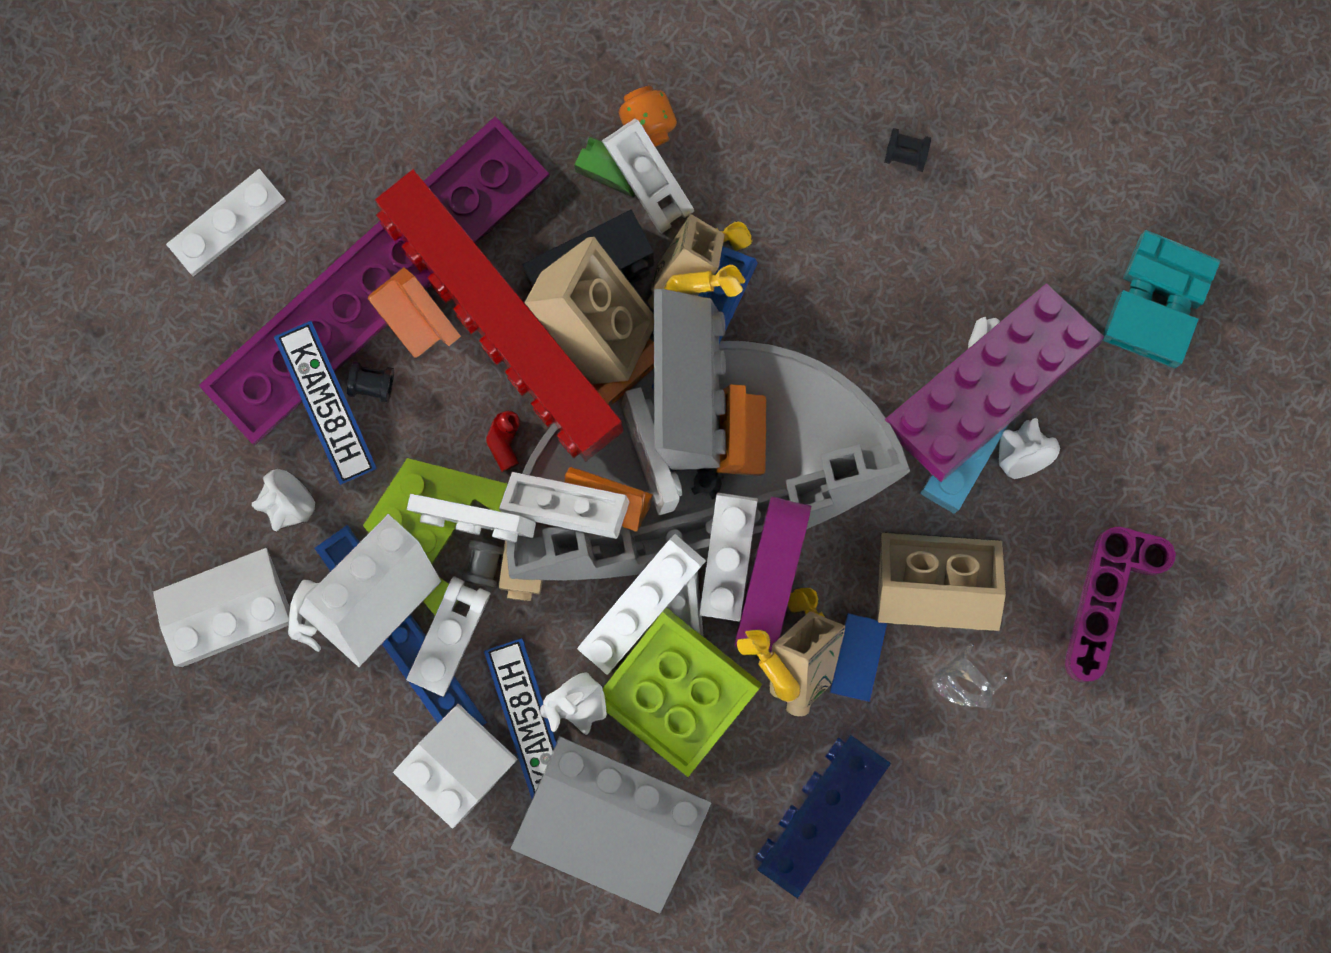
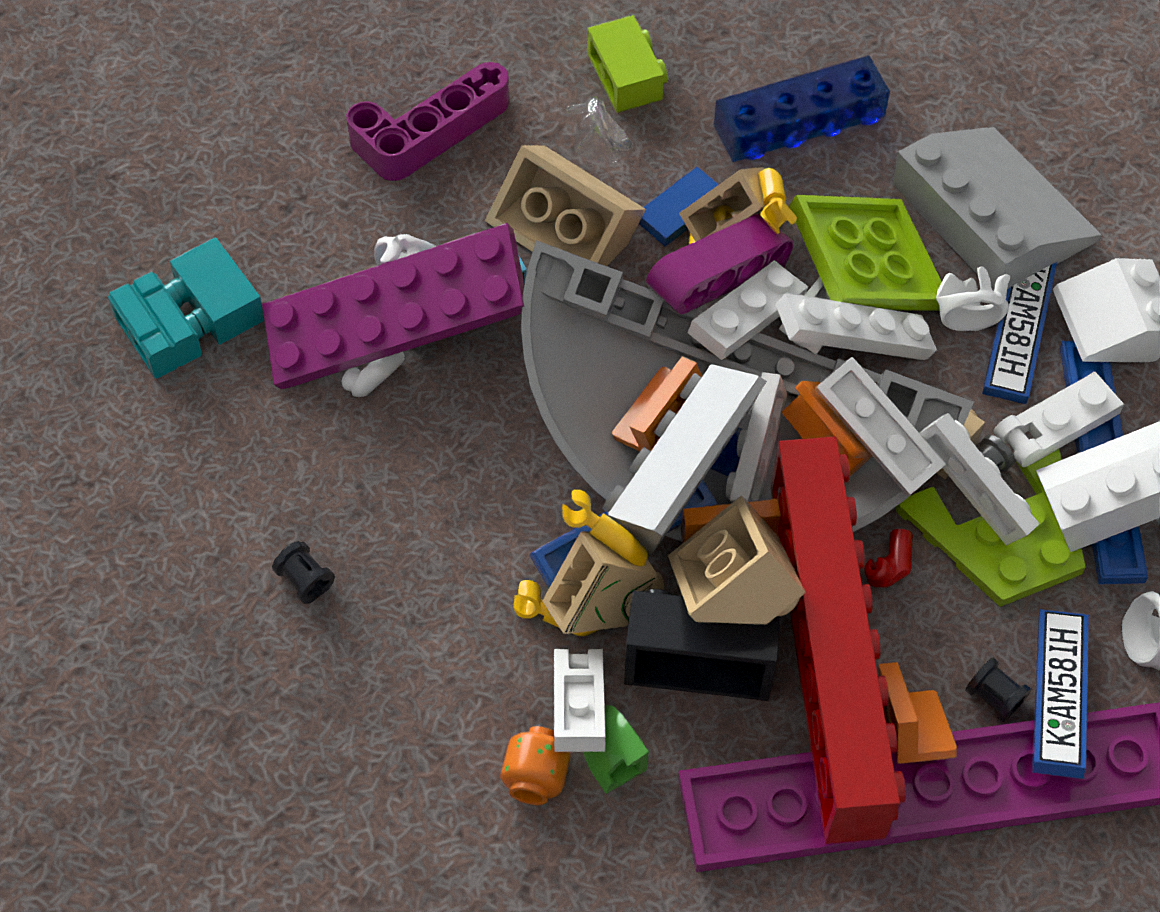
camera: 145 degrees left, 25 degrees down
(996, 767) = (626, 63): none -> lime brick

